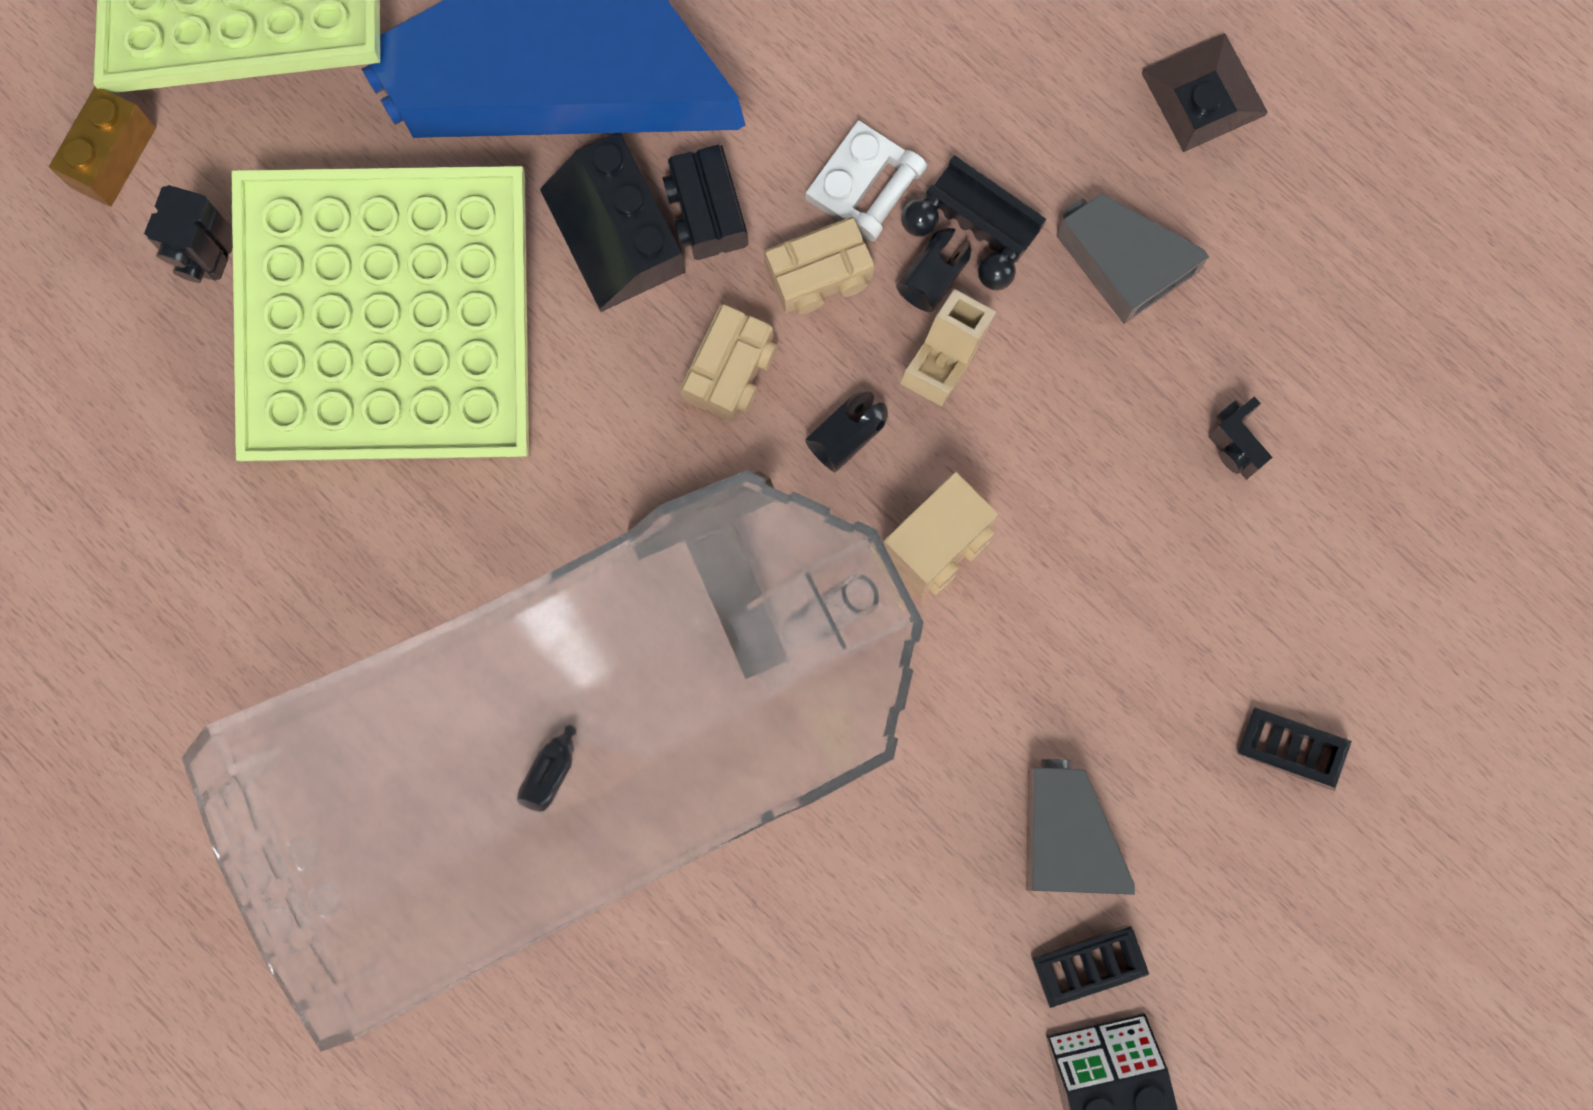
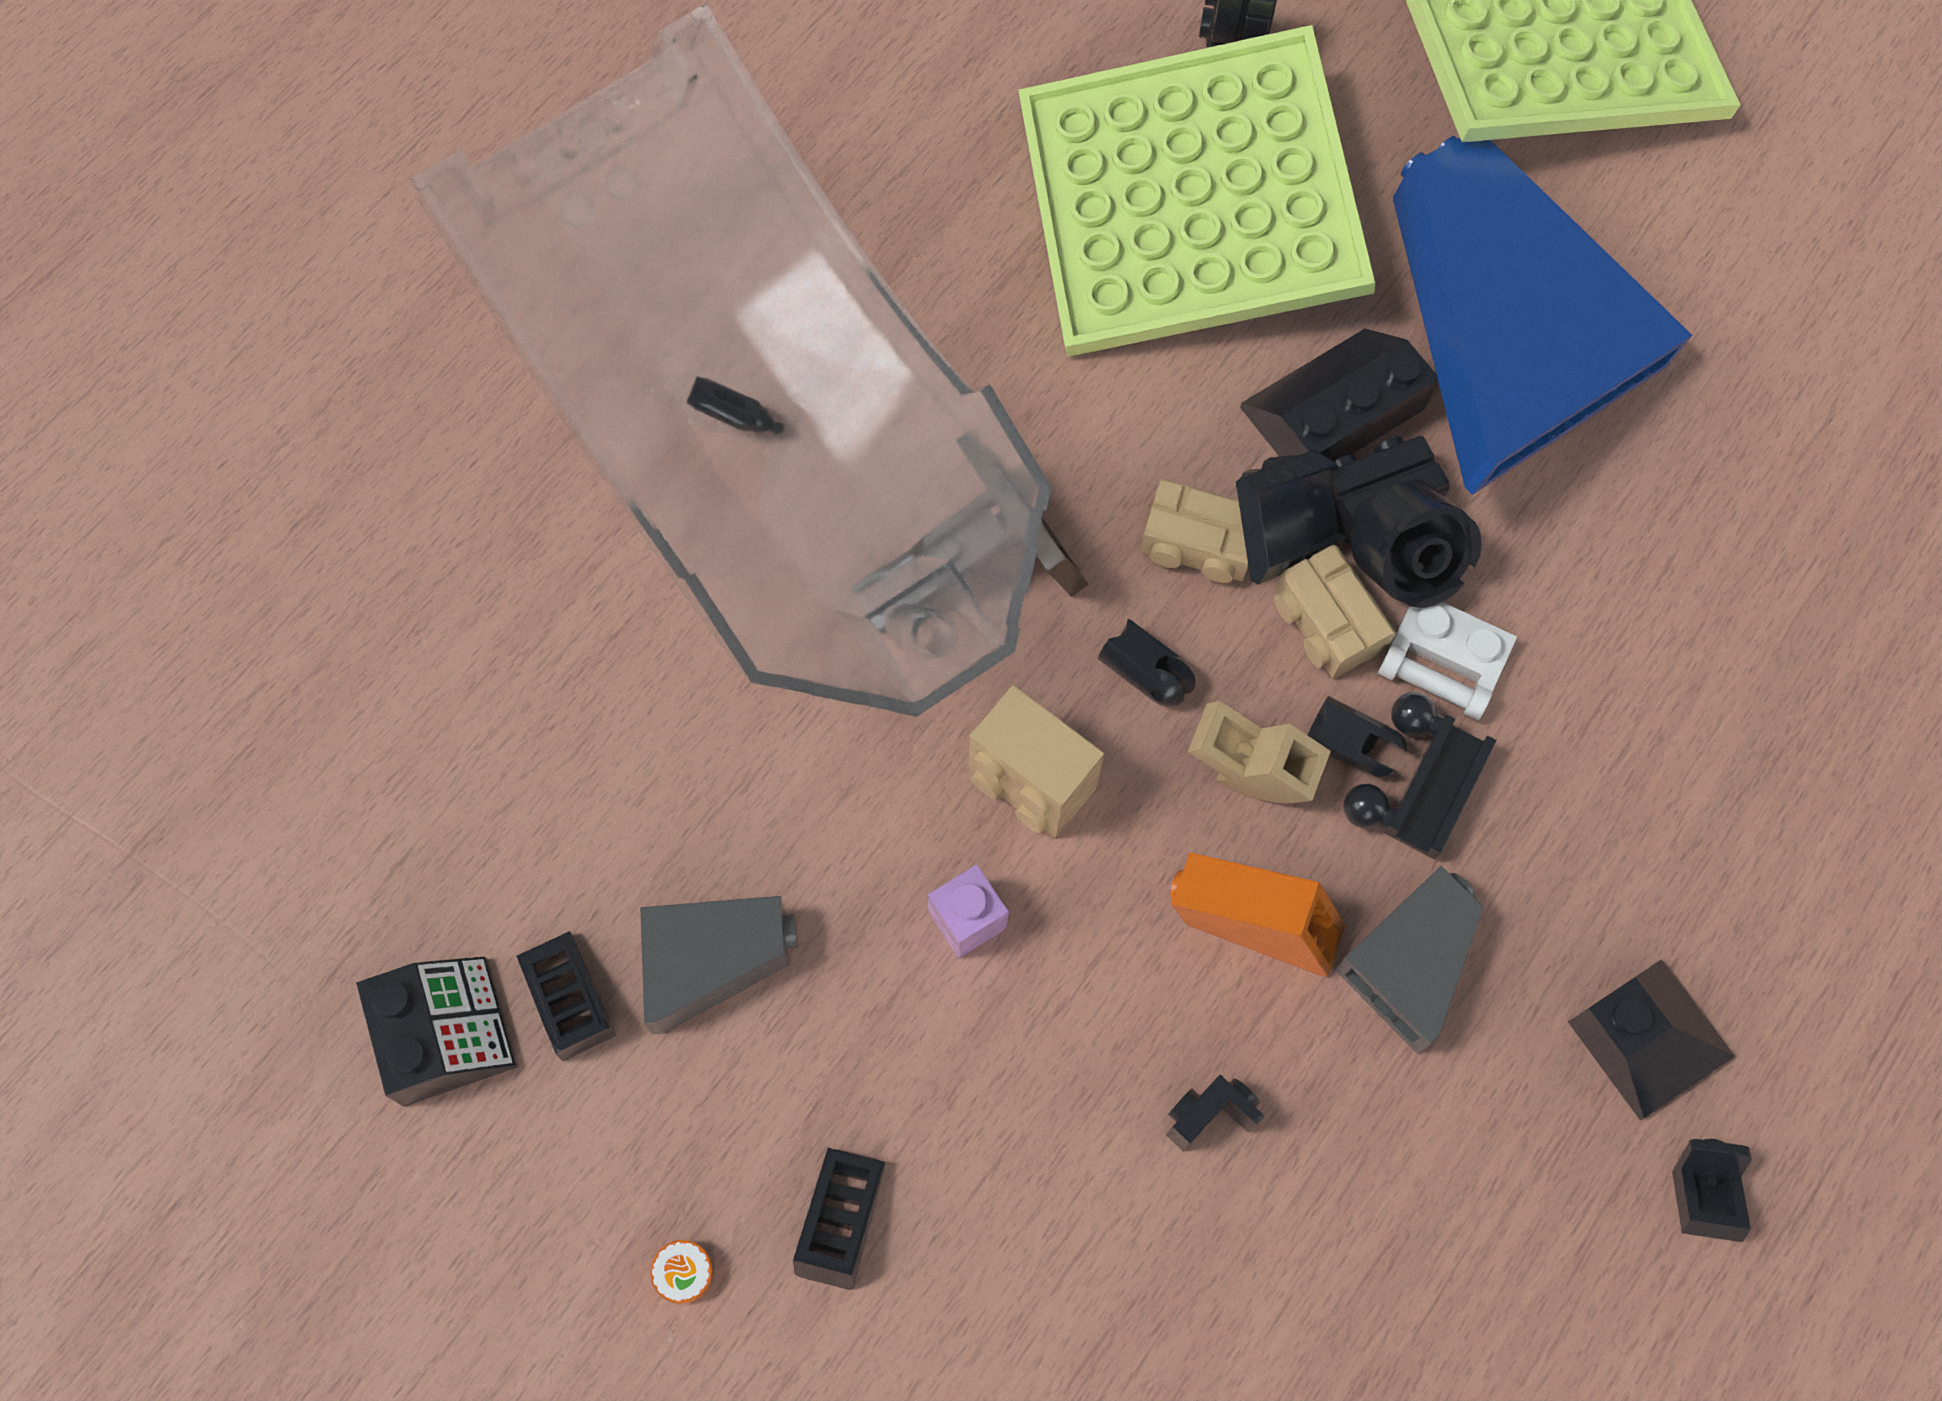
camera: 80 degrees right, 10 degrees down
(731, 284) = (1287, 512): none -> black slope
(773, 184) = (1414, 543): none -> black brick
(1056, 611) = (967, 911): none -> lavender brick
(1079, 377) = (1260, 911): none -> orange slope
(1328, 882) = (681, 1272): none -> tile
(1332, 74) = (1712, 1189): none -> black bracket

